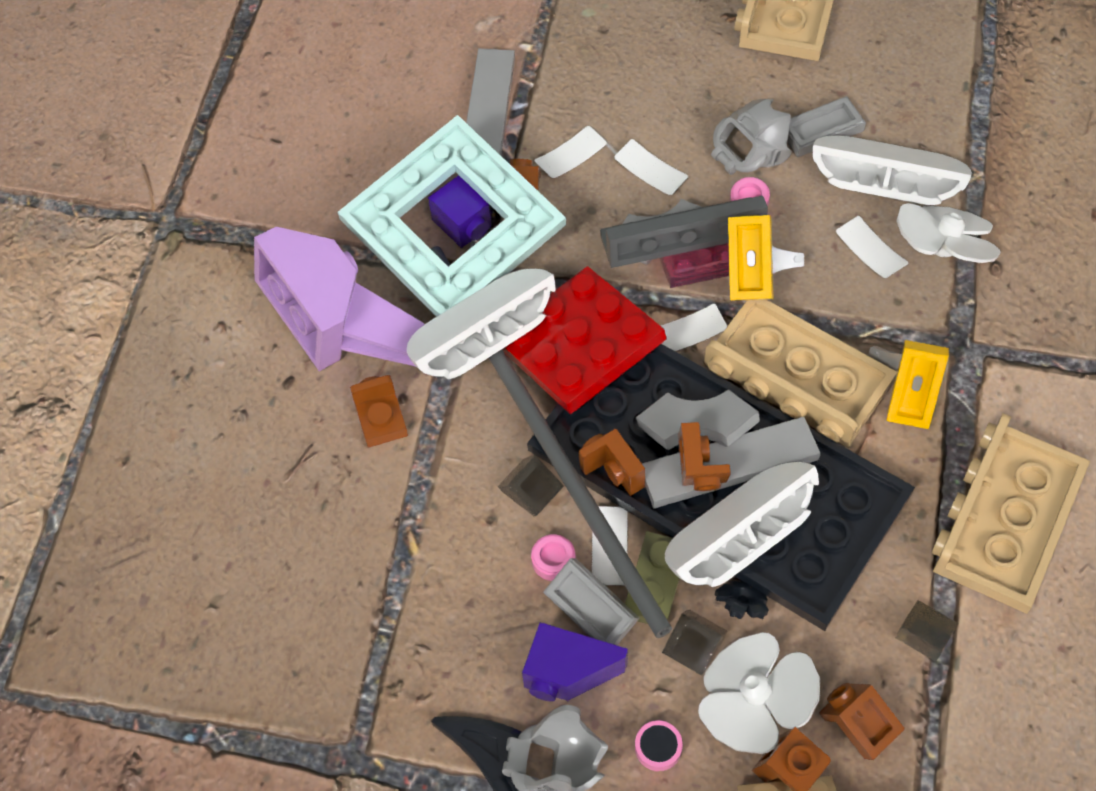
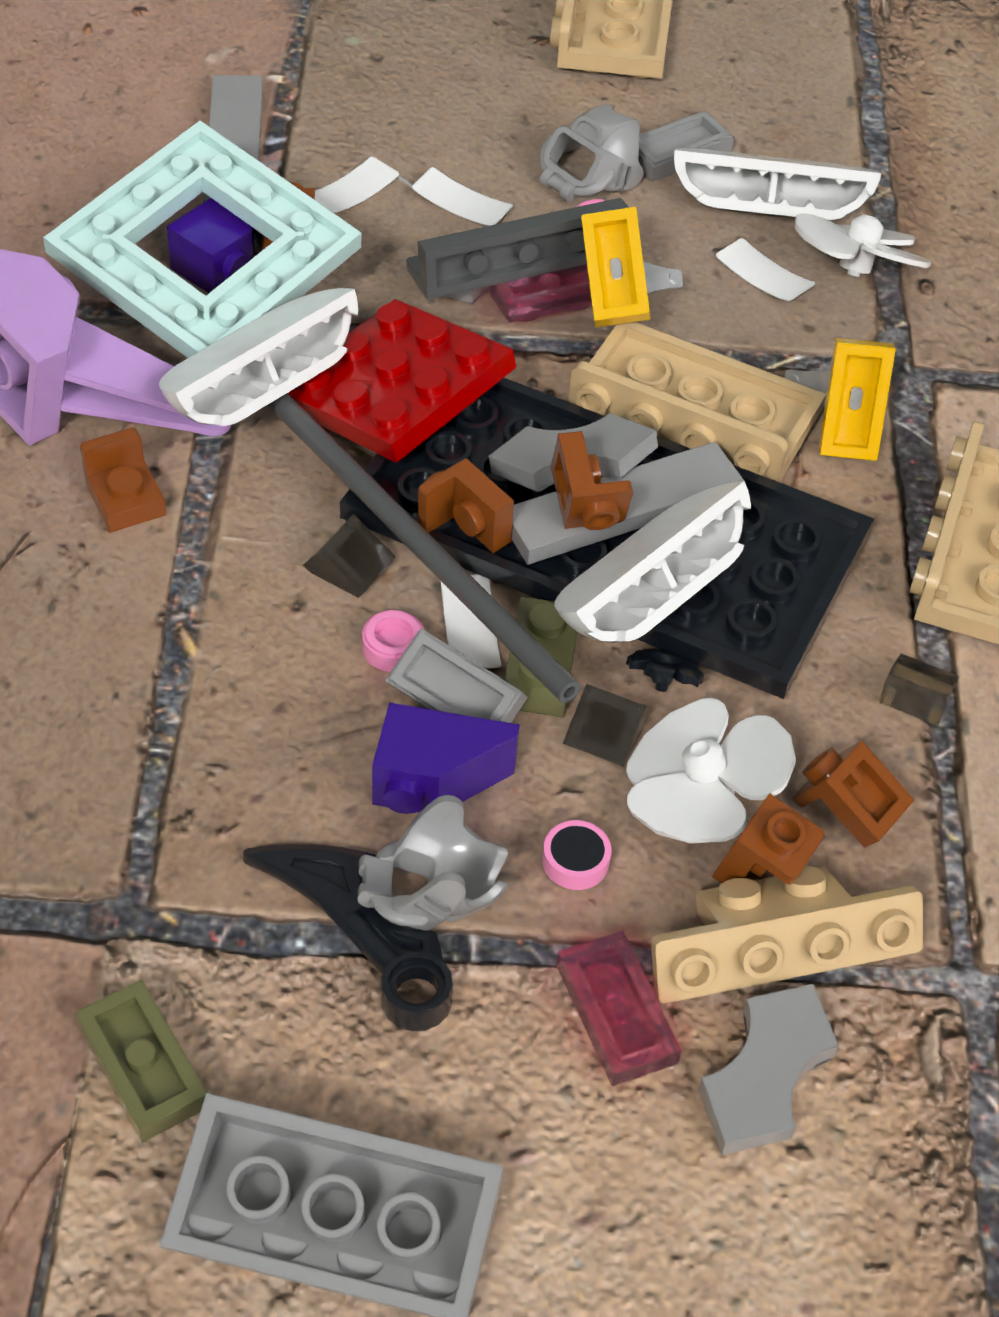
camera: 15 degrees left, 10 degrees down
(694, 328) = (549, 368): white sticker -> none

